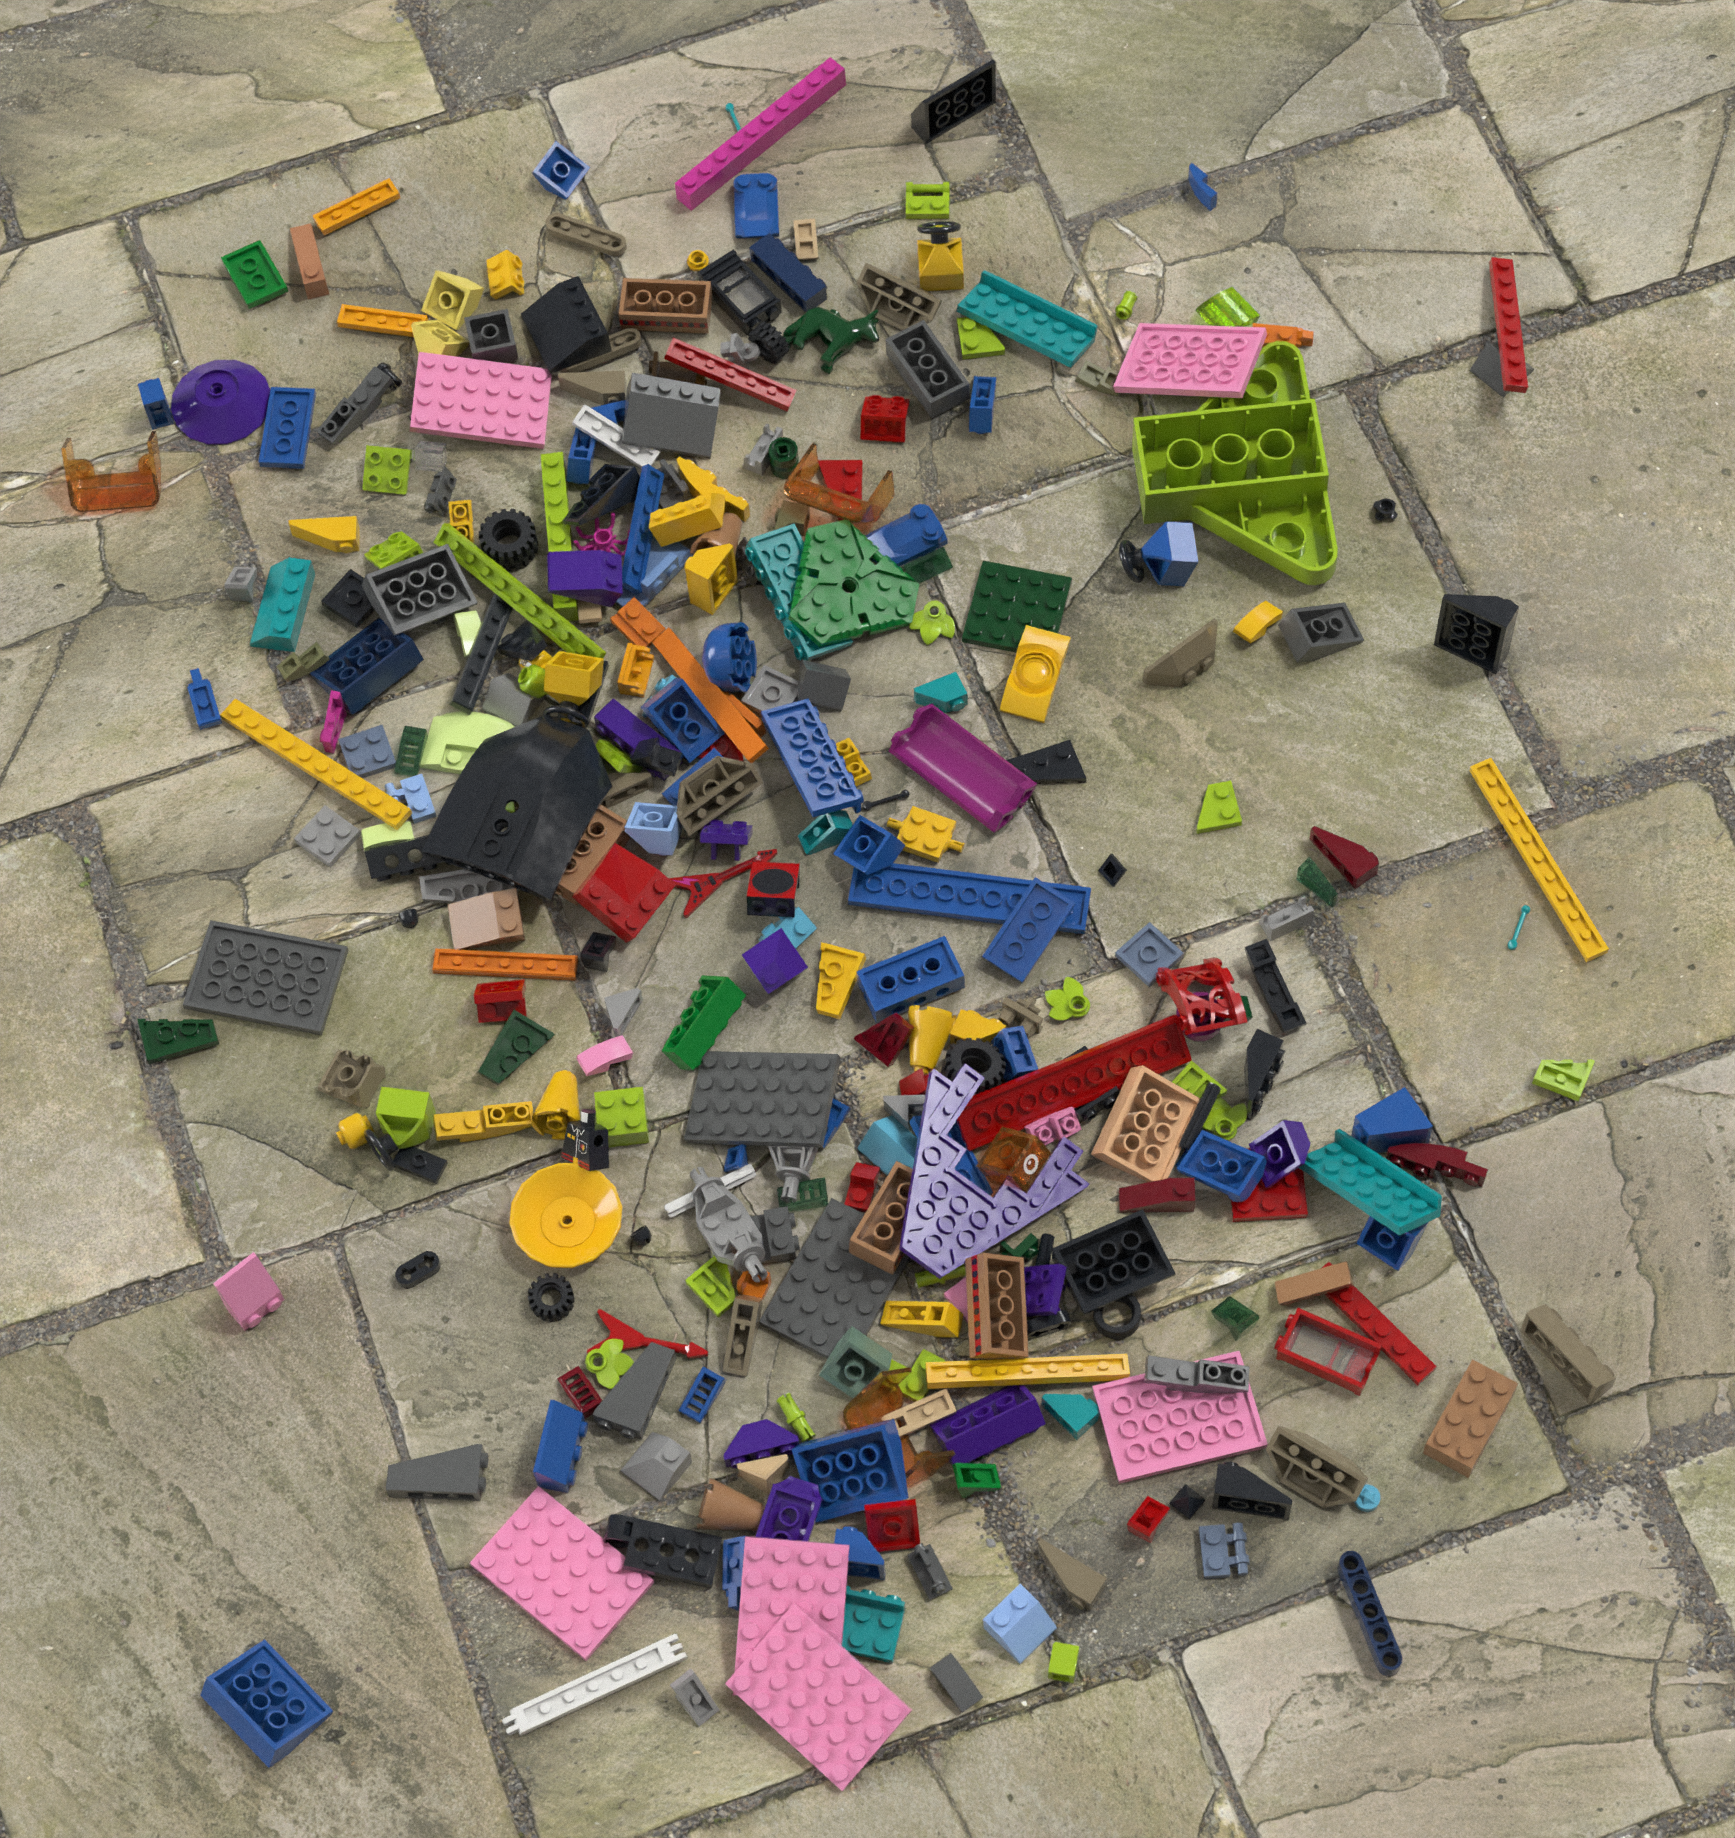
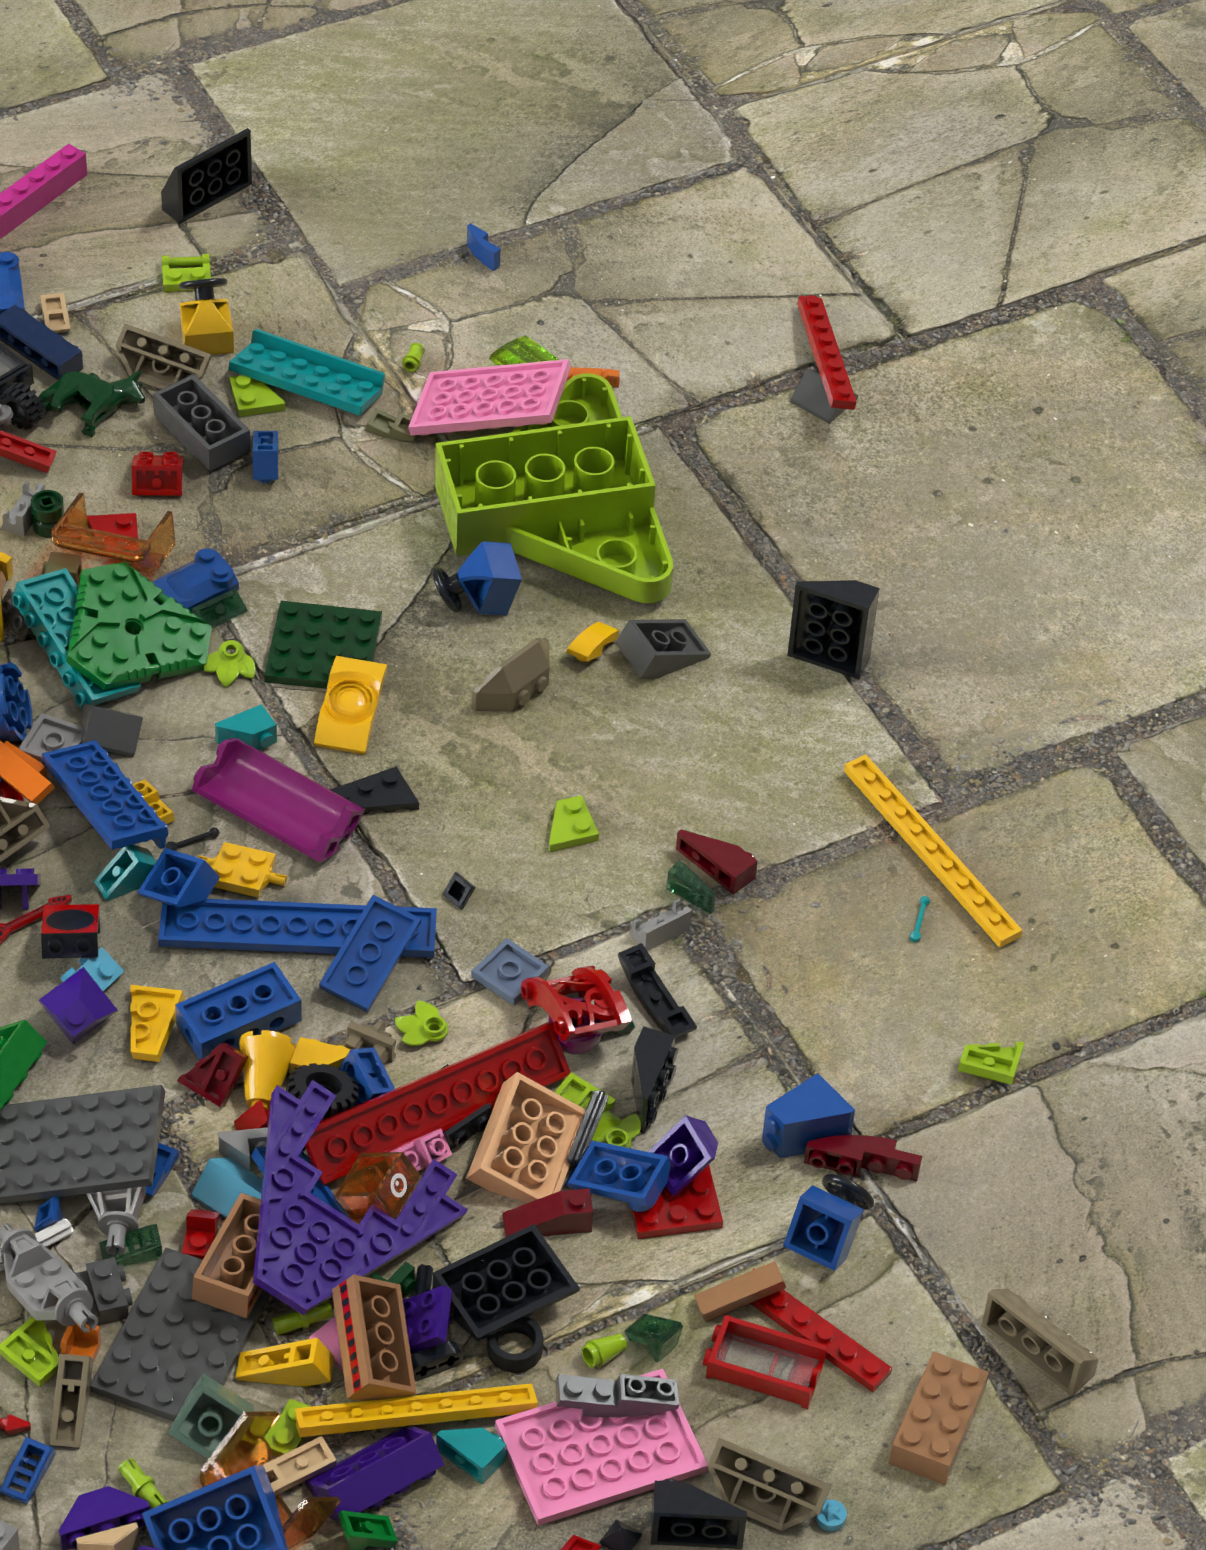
camera: 15 degrees left, 15 degrees down
(1190, 1327) = (602, 1350): none -> lime cone
(1373, 1184) = (797, 1173): teal bracket -> none
(1386, 504) = (717, 530): black plate -> none

